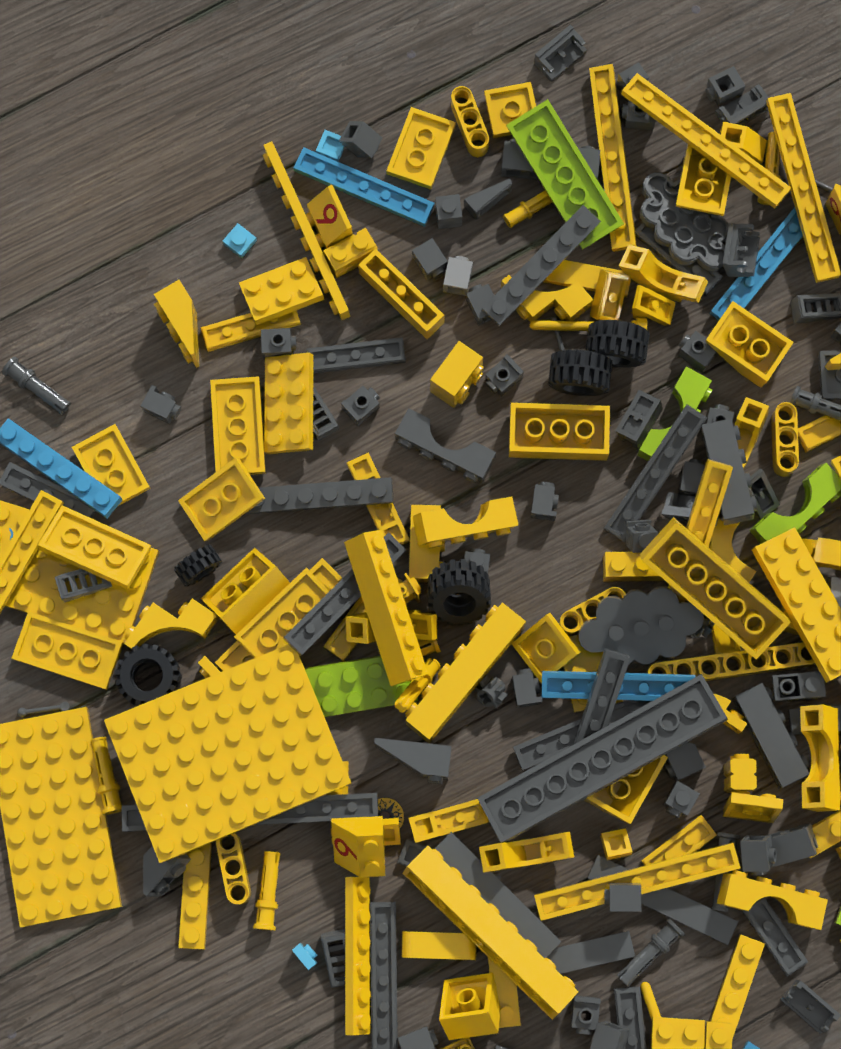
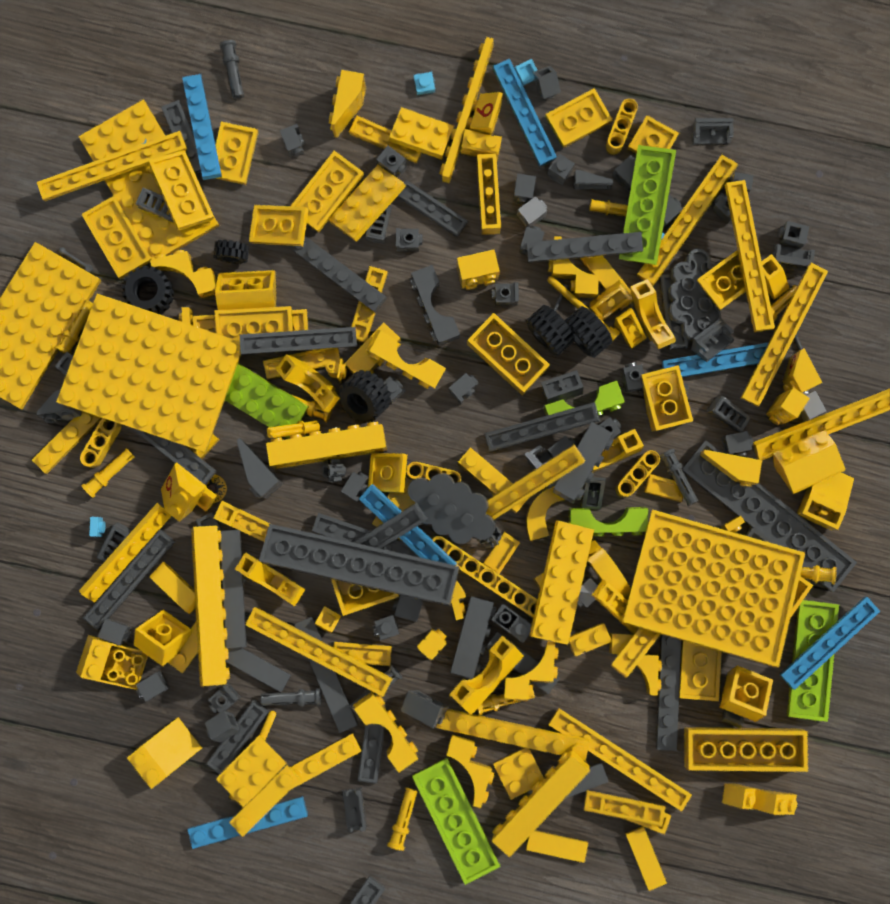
camera: 35 degrees right, 5 degrees up
(386, 607) = (312, 368): yellow brick -> none
(623, 897) = (301, 653): dark grey brick -> none
(639, 535) = (500, 456): dark grey brick -> none
(714, 588) = (511, 523): yellow brick -> none
(752, 807) = (428, 674): yellow plate -> none
(758, 854) = (400, 697): dark grey brick -> none

